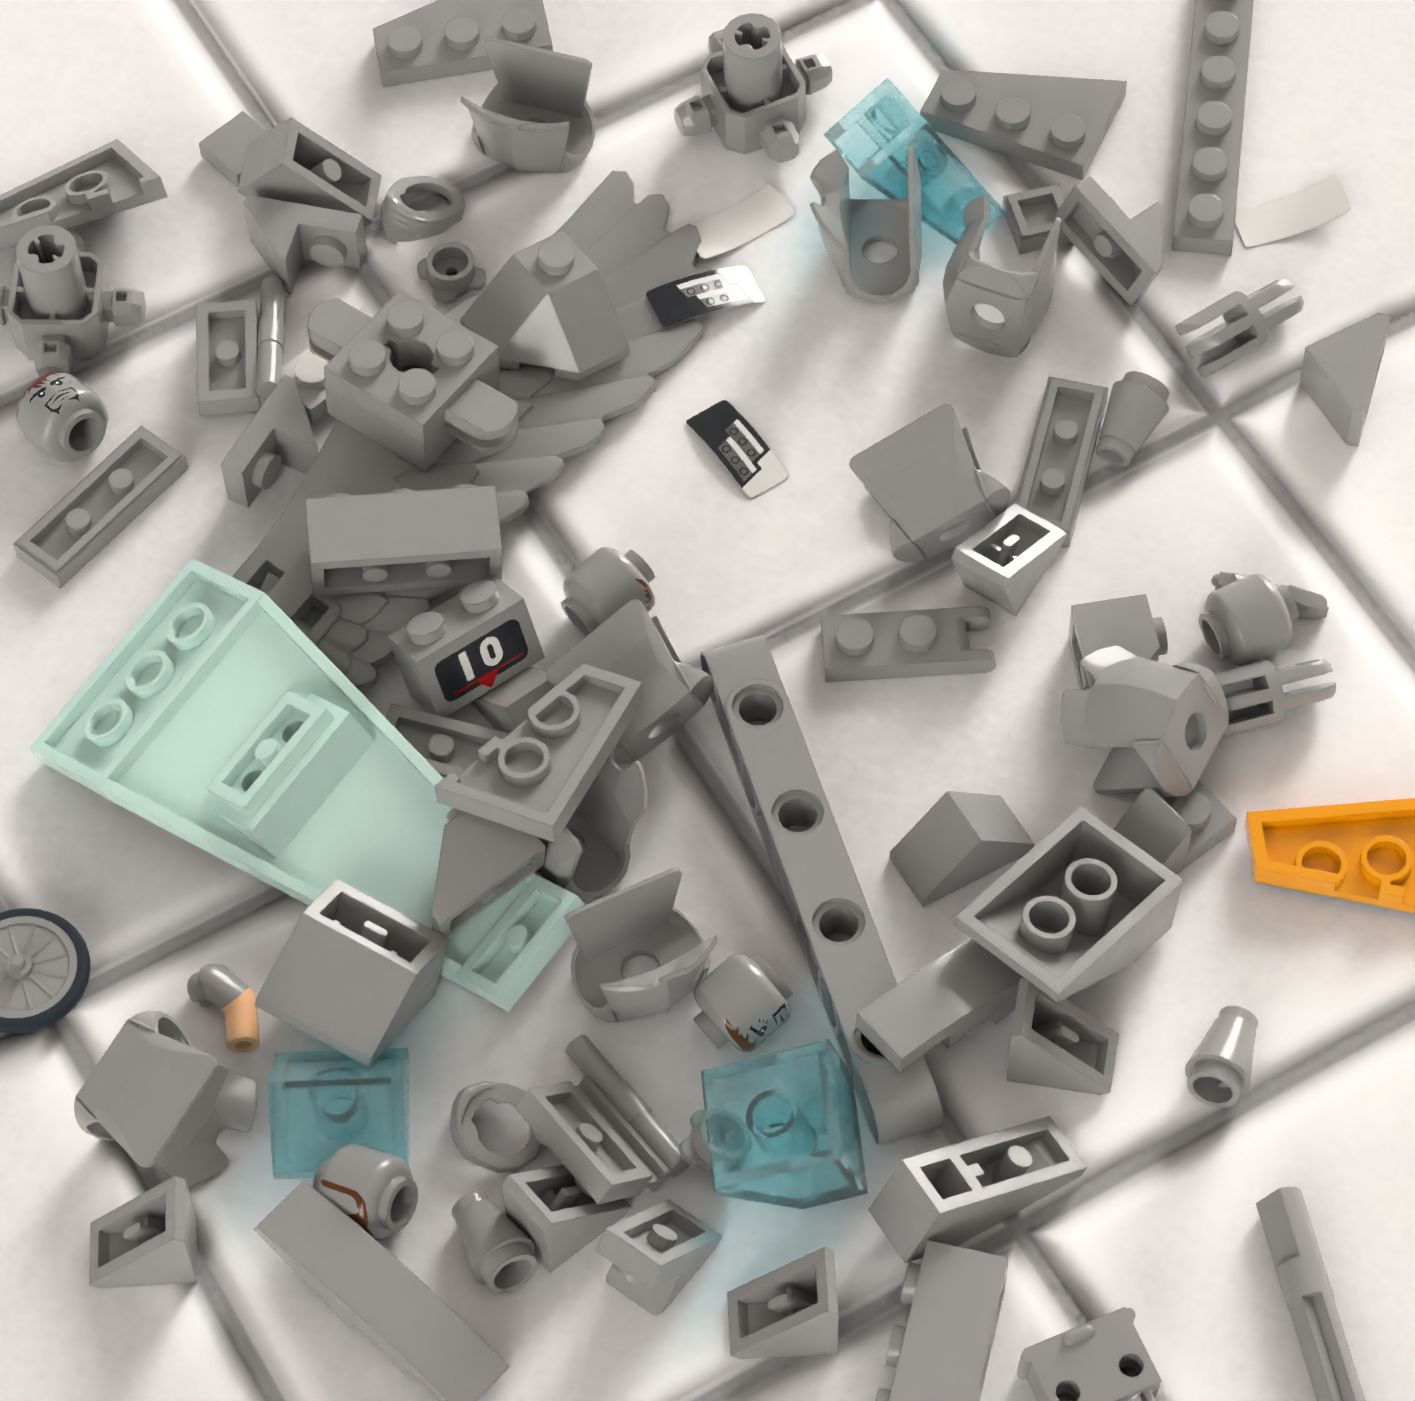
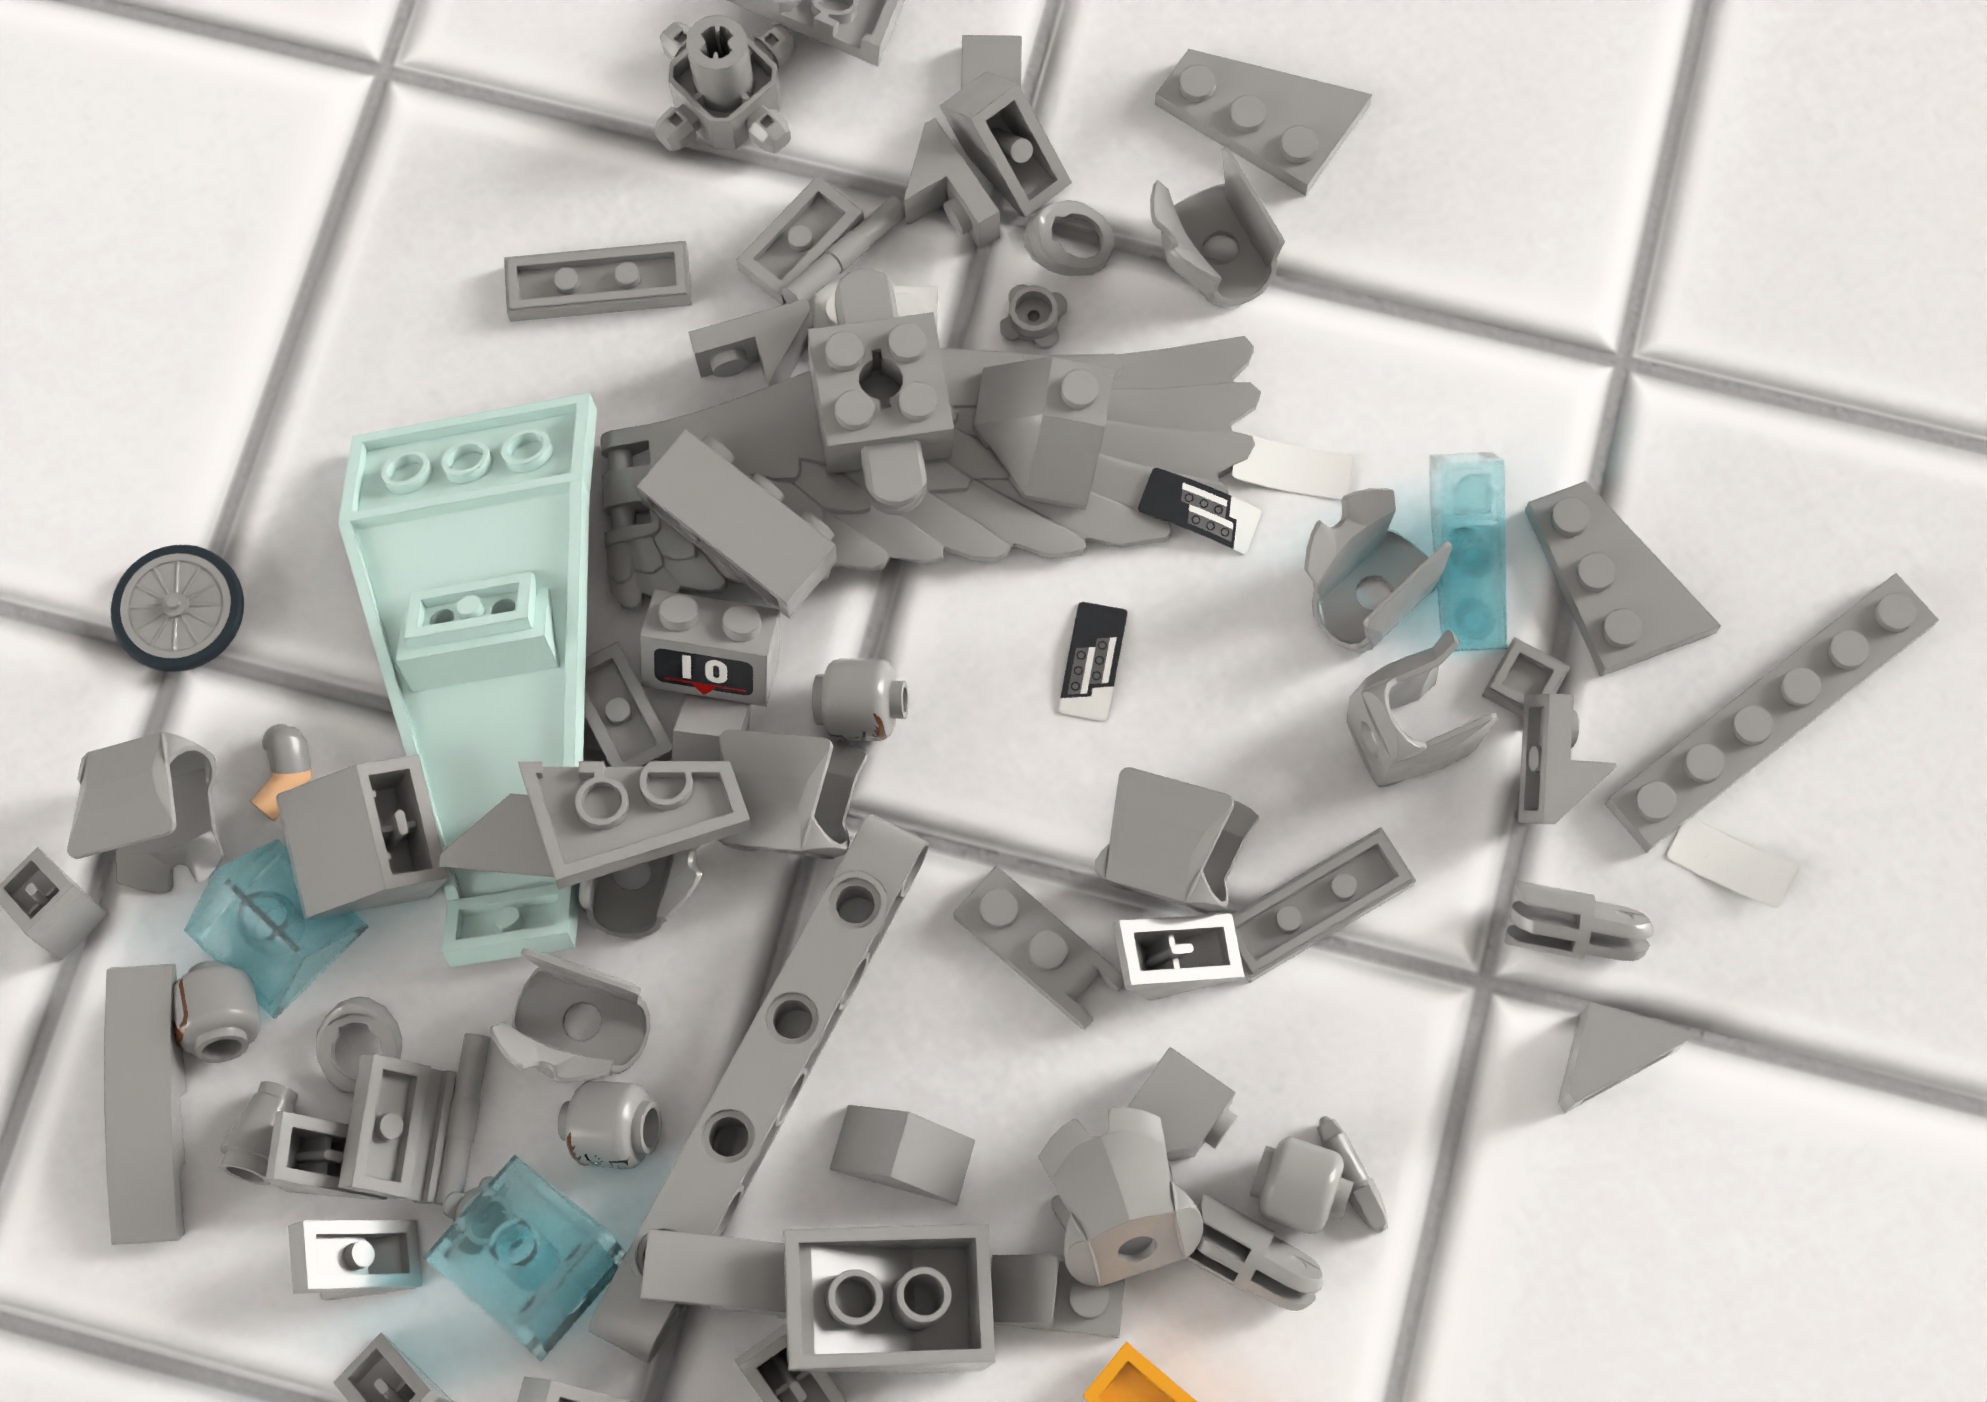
camera: 45 degrees right, 15 degrees up
(62, 416) = (634, 184): light grey head -> none
(753, 90) = (1411, 369): light grey piece -> none
(1131, 416) = (1403, 923): light grey cone -> none

